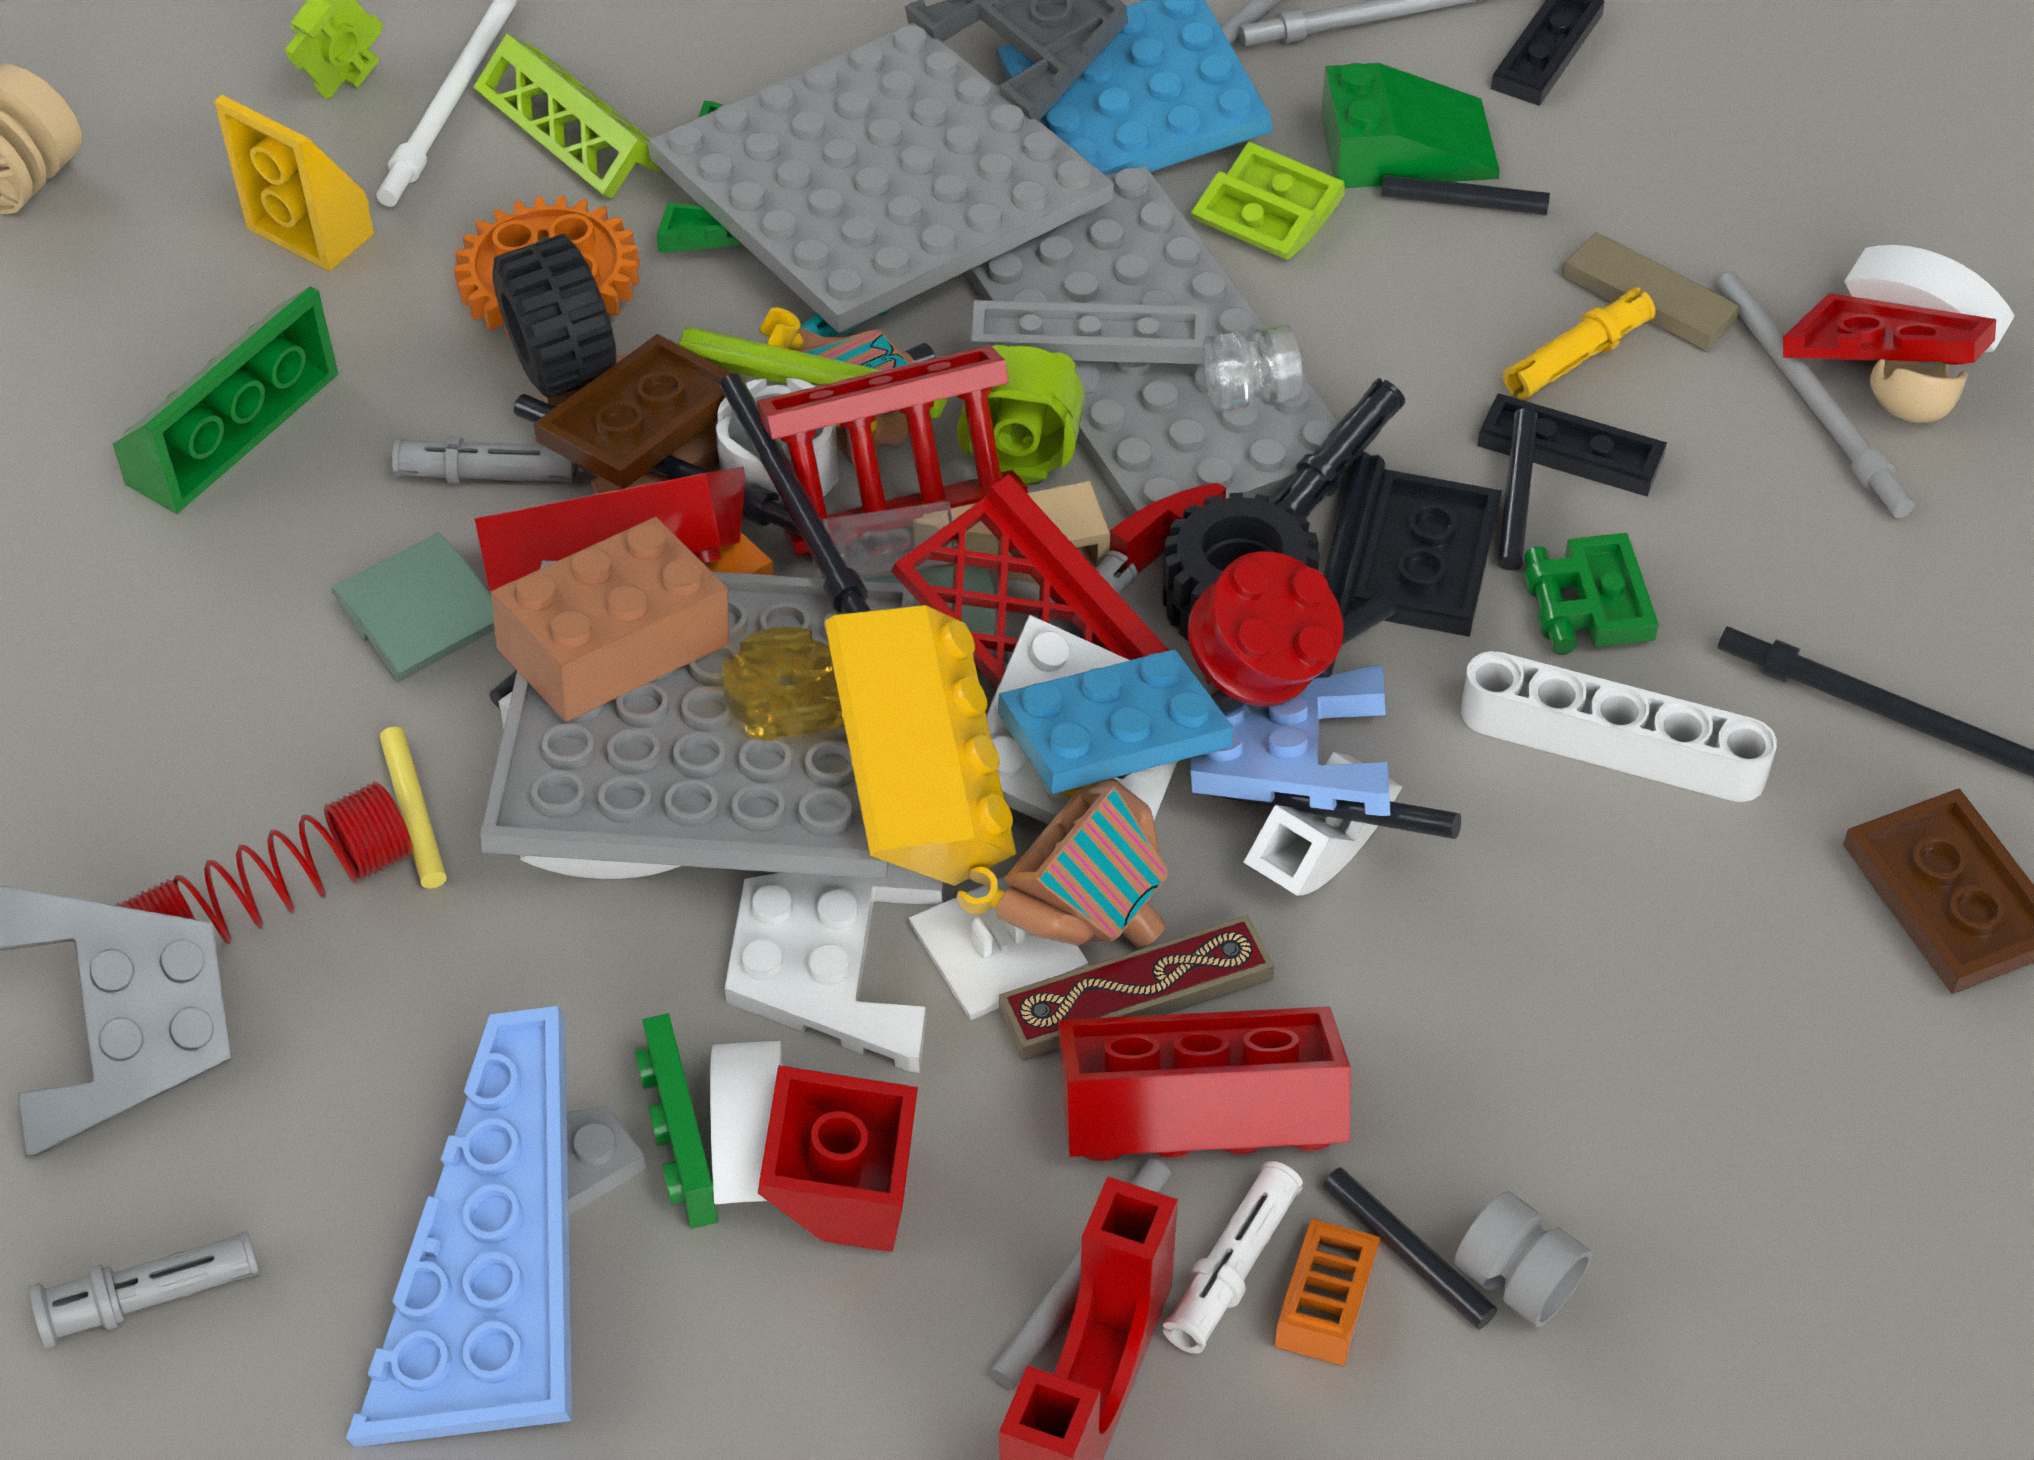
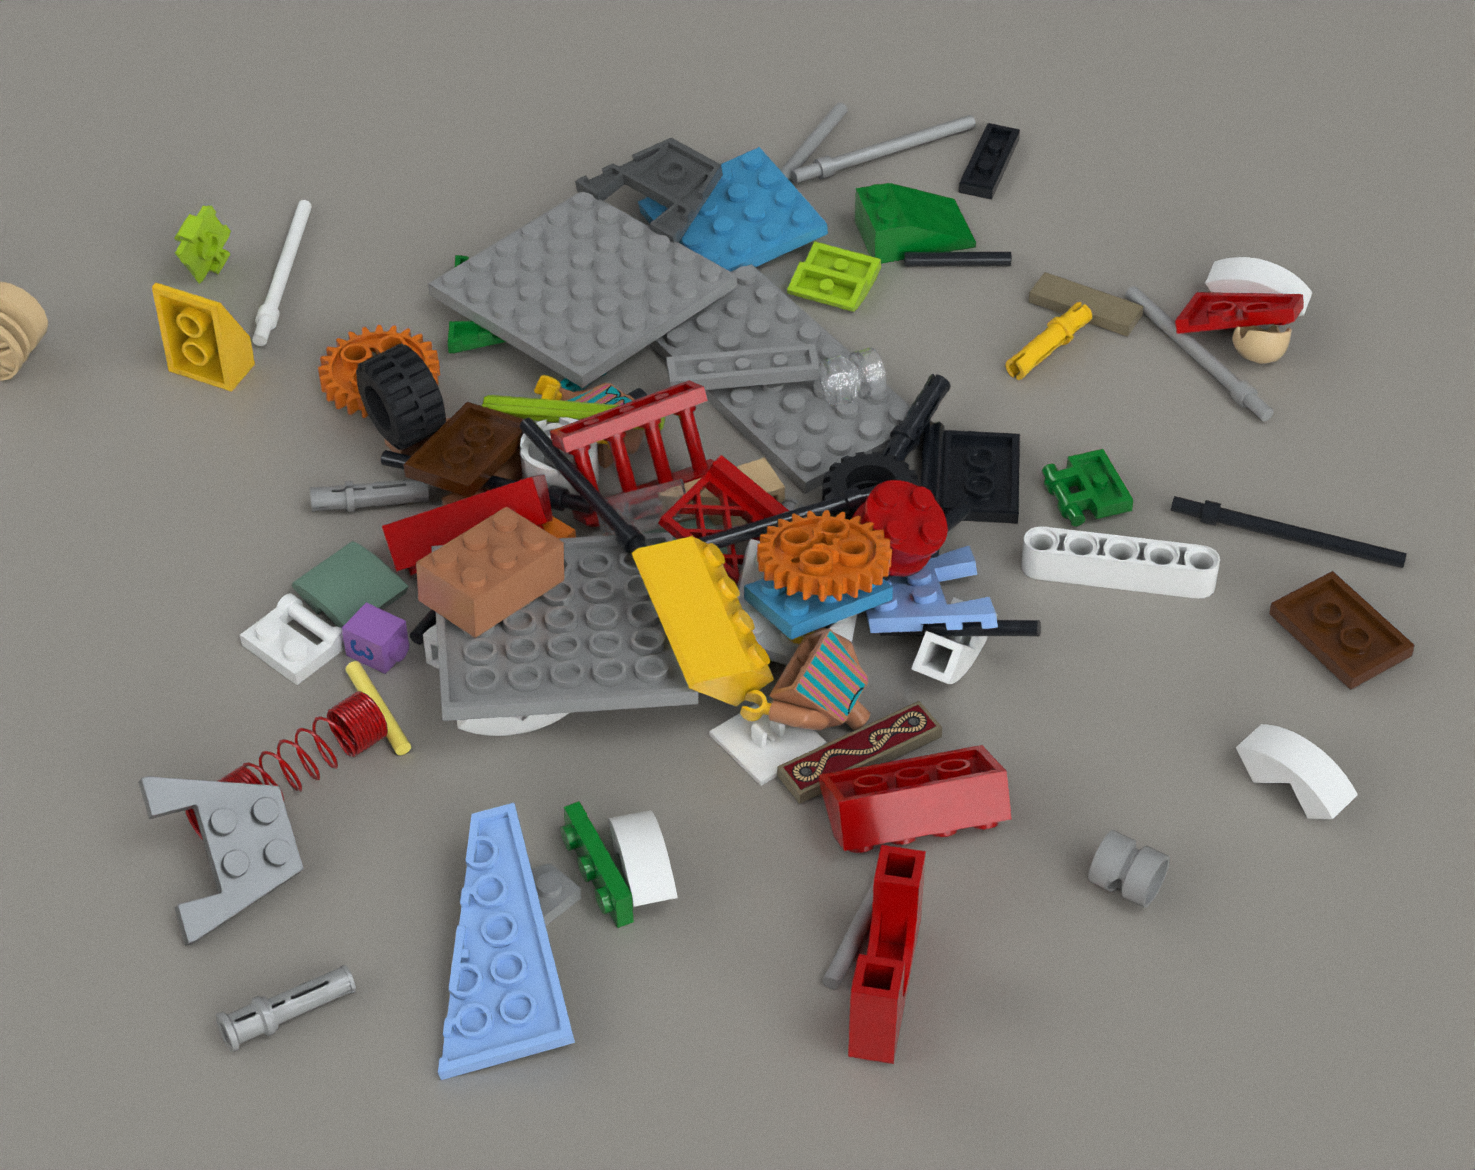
camera: 10 degrees left, 5 degrees down
(229, 404) = (193, 478): green slope -> none
(300, 689) = (288, 649): none -> white plate
(433, 694) = (376, 638): none -> medium lavender brick
(580, 103) = (375, 268): lime fence -> none
(776, 709) = (602, 613): clear yellow plate -> none
(804, 957) = (649, 758): white wing -> none
(839, 1155) = (708, 866): red slope -> none
(1034, 413) = (721, 421): lime brick -> none
(1129, 664) = (824, 555): none -> orange gear
(1144, 532) = (808, 482): red slope -> none
(1196, 574) = (847, 502): none -> black bar
(1220, 1277) = (950, 906): white pin -> none
(1312, 1334) = (1015, 930): orange slope -> none
(1410, 1248) = (1058, 875): black bar -> none
(1518, 489) = (1030, 431): black bar -> none
(1578, 445) = (1056, 401): black tile -> none
(1823, 1105) = (1286, 757): none -> white brick

